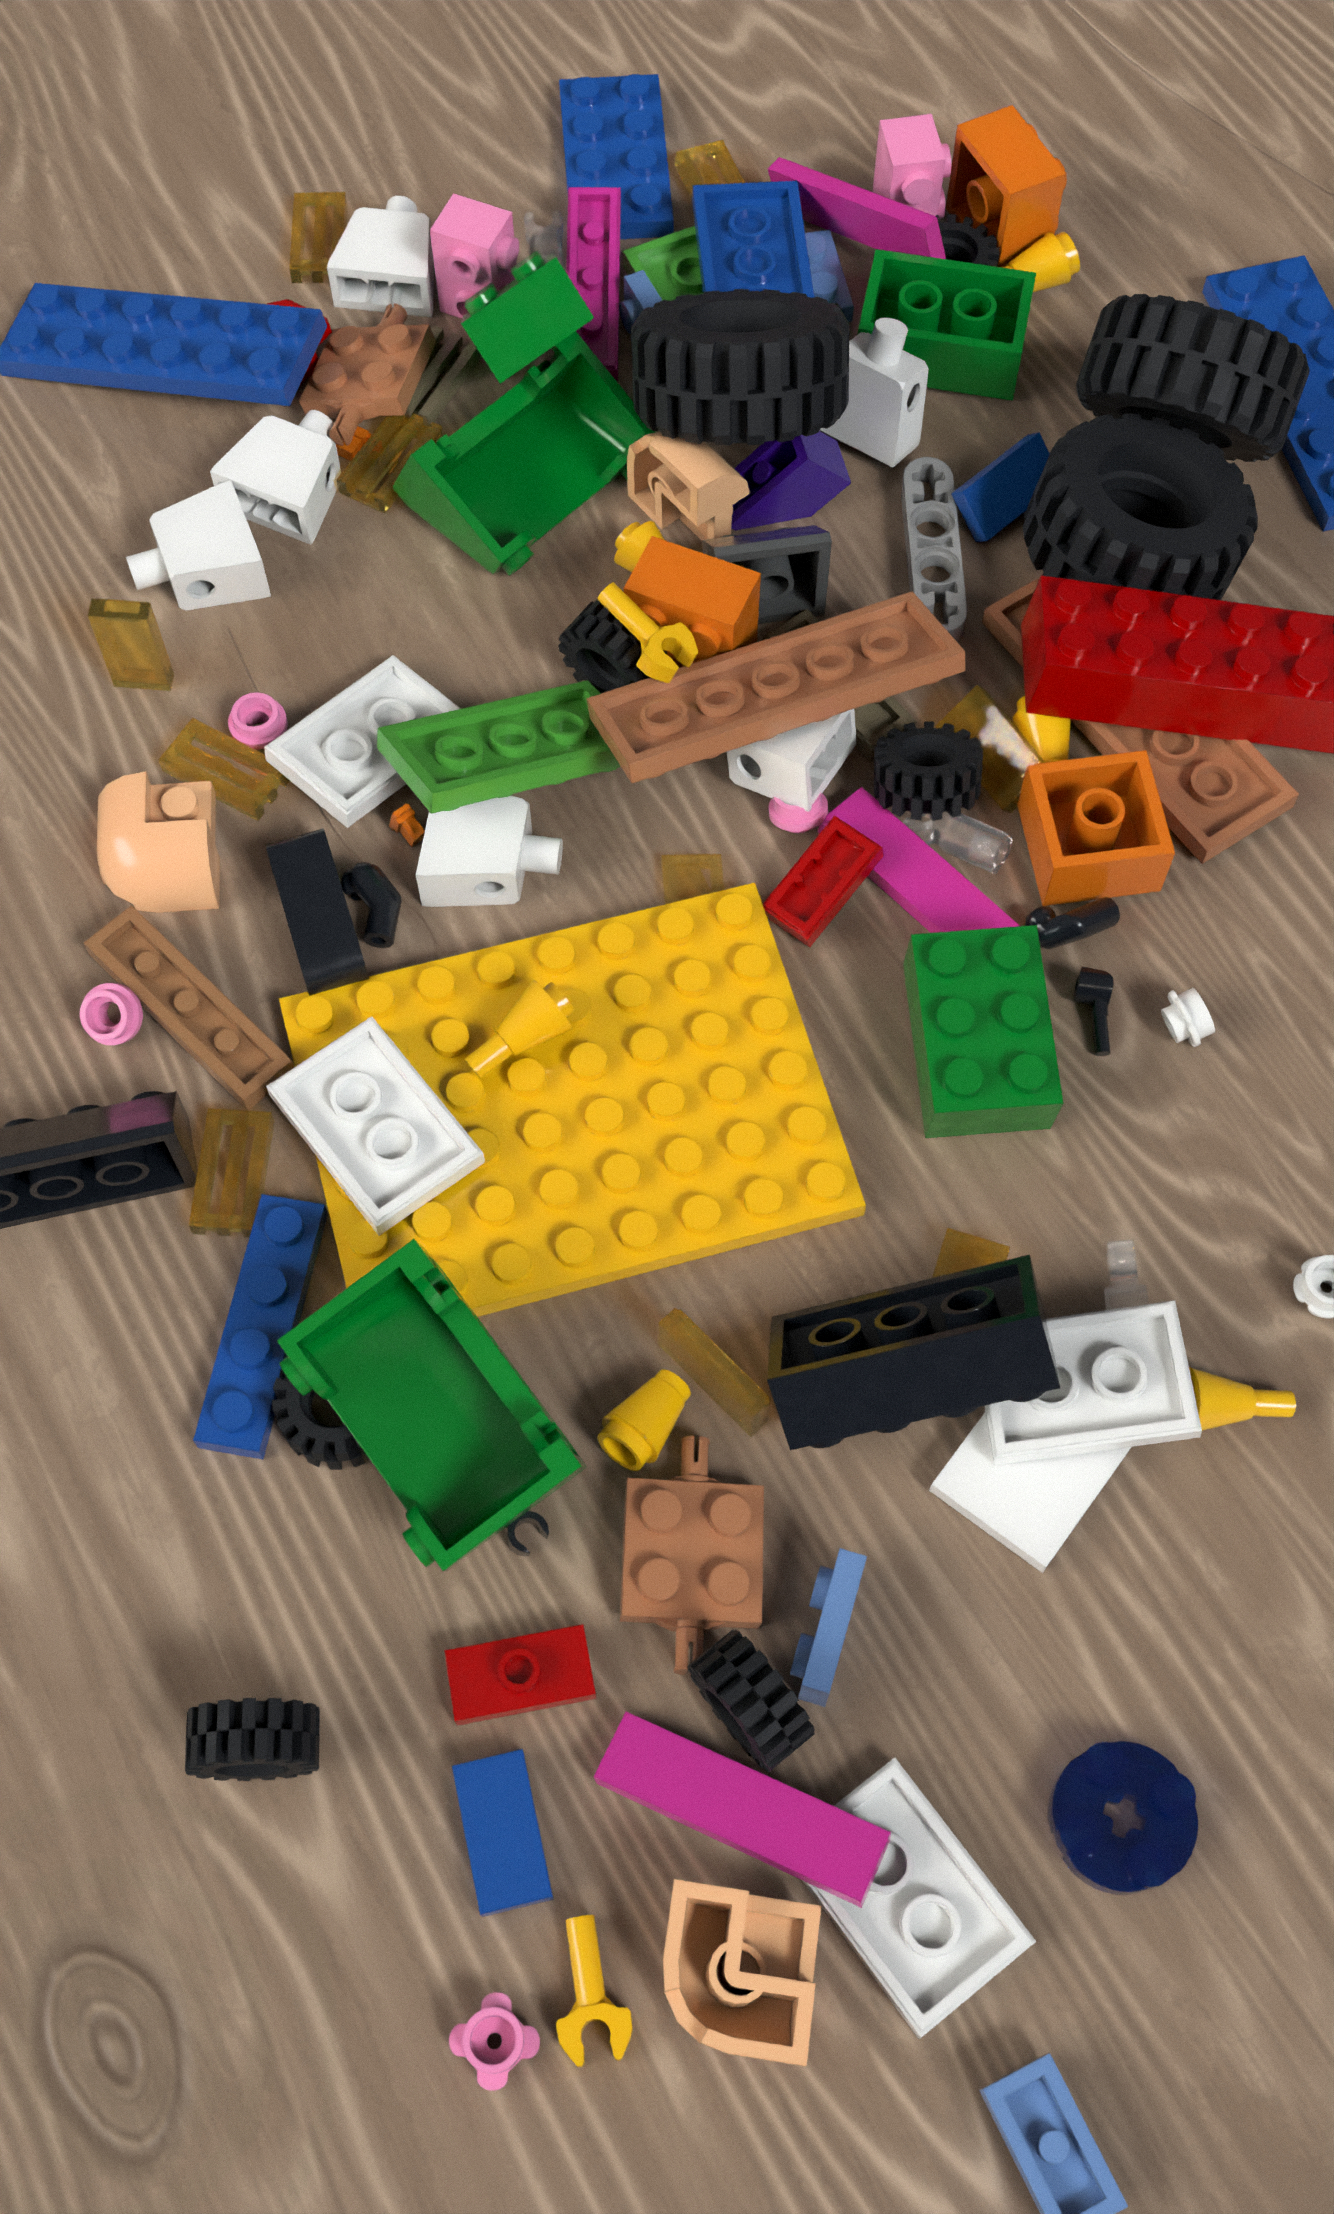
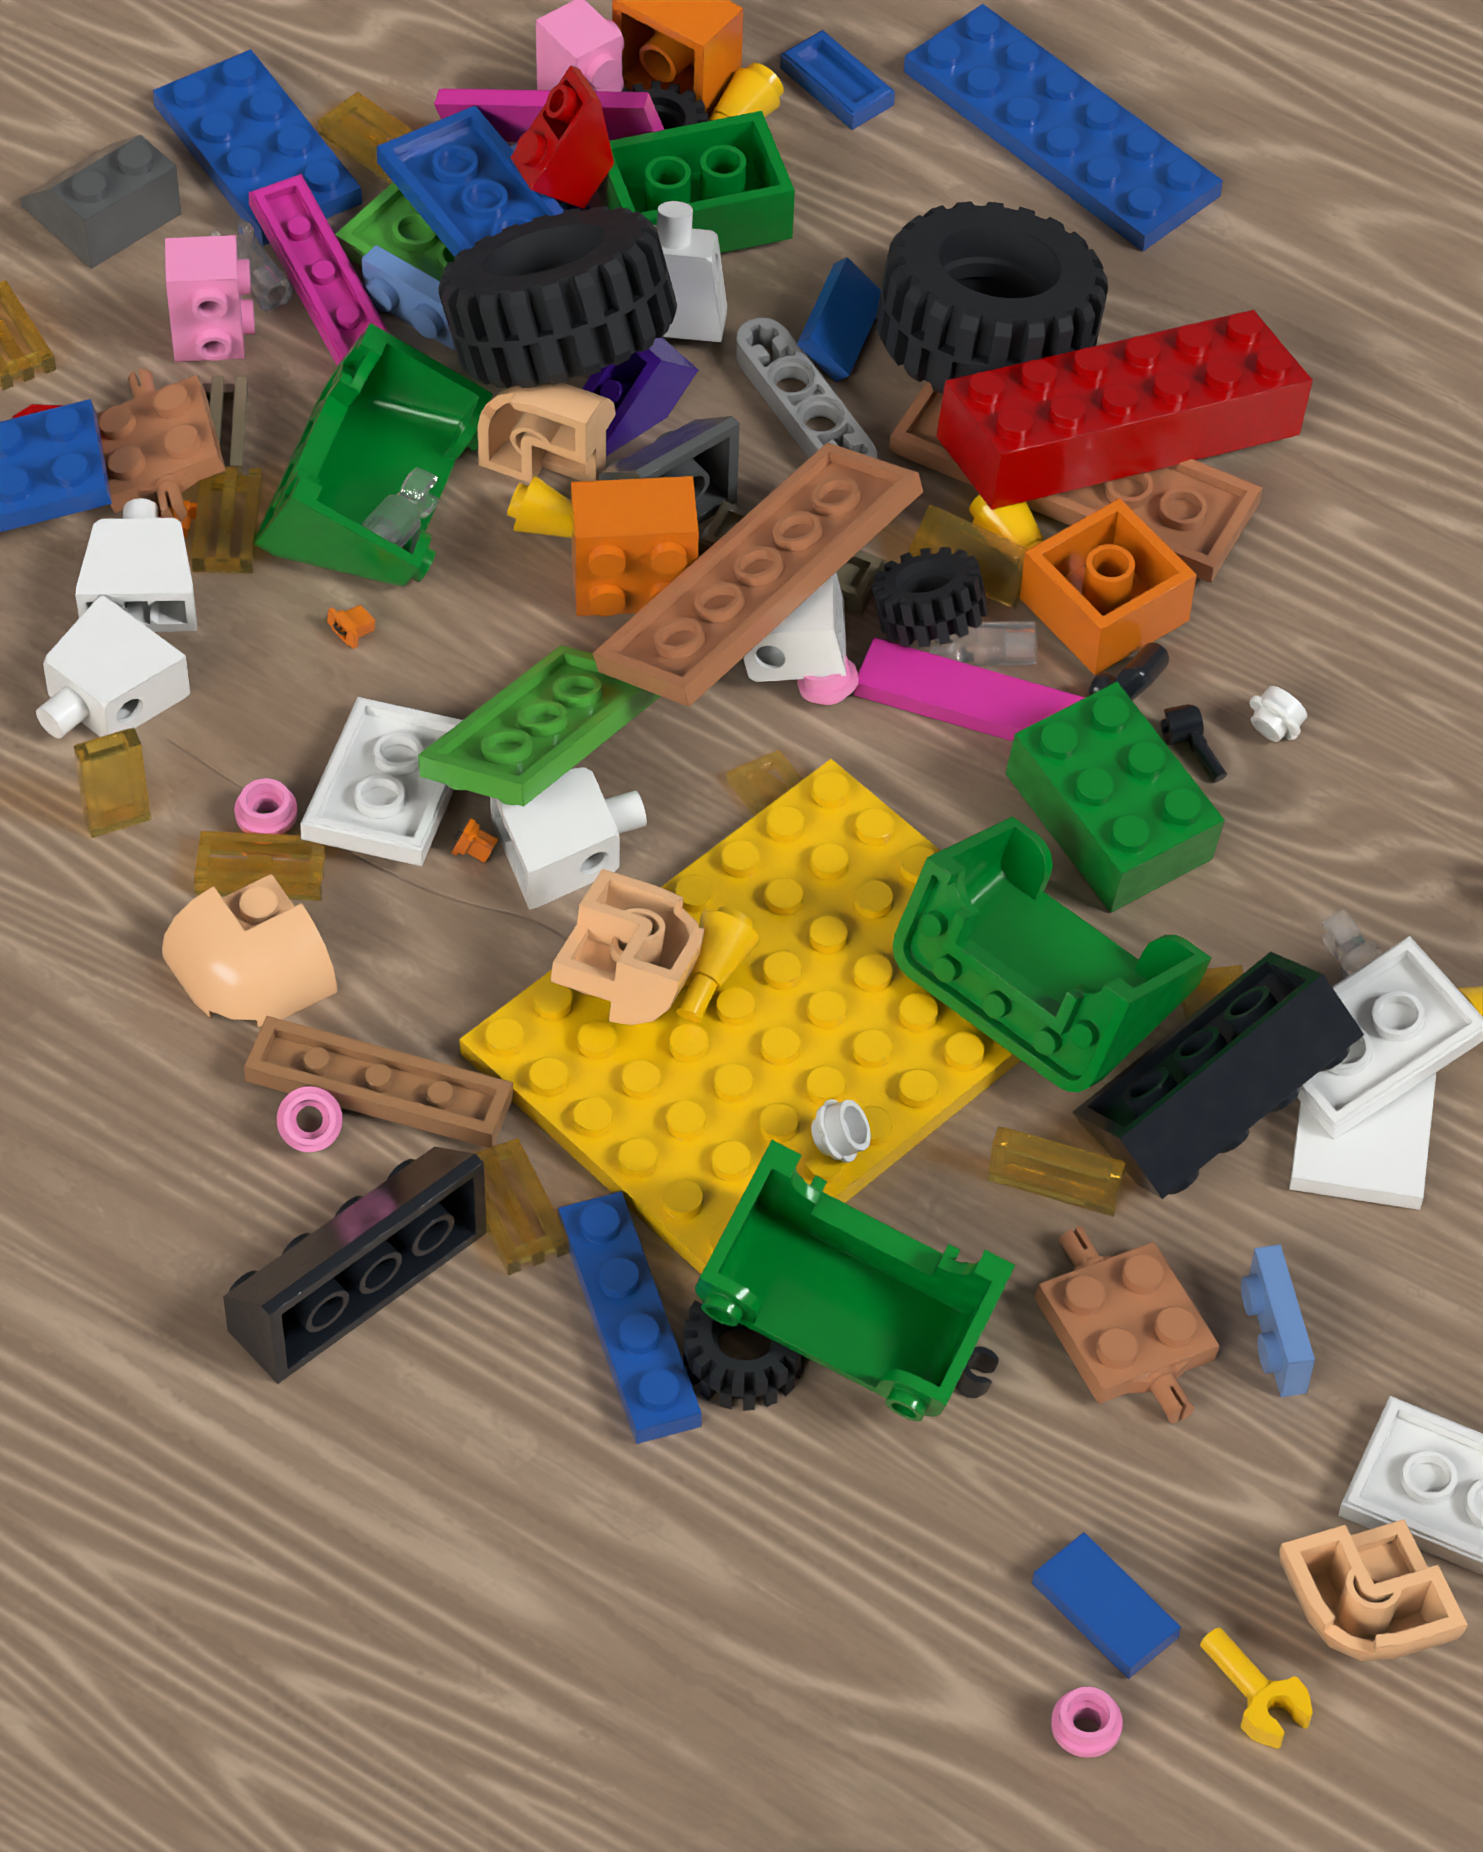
camera: 30 degrees left, 10 degrees down
(252, 1739) = (861, 1619): black tyre -> none
(316, 912) = (444, 949): black beam -> none
(375, 1125) = (631, 1099): white tile -> none
(384, 260) = (103, 330): white torso -> none
(384, 902) = (494, 915): black arm -> none
(386, 1942) = (1089, 1704): none -> bright pink plate
(433, 590) = (351, 624): none -> orange piece
(446, 983) = (629, 948): none -> light nougat brick
(465, 156) = (108, 199): none -> dark grey slope
(471, 2041) = (1206, 1737): bright pink plate -> none
(519, 1674) = (1042, 1482): red plate -> none
(523, 510) = (400, 514): none -> clear bar
(525, 315) = (310, 328): green brick -> none
(531, 1243) = (841, 1130): none -> white plate
(601, 649) = (578, 603): black tyre -> none
(643, 1421) = (1023, 1235): yellow cone -> none
(653, 638) = (643, 579): yellow bar -> none
(743, 1809) = (1292, 1486): dark pink tile -> none
(751, 1700) = (1253, 1396): black tyre -> none
(804, 1163) = (1030, 967): none -> green windscreen
(822, 881) = (891, 731): red plate -> none
(840, 241) = (567, 143): none -> red slope
(1133, 264) = (837, 79): none -> blue tile
(1197, 371) = (972, 146): black tyre -> none

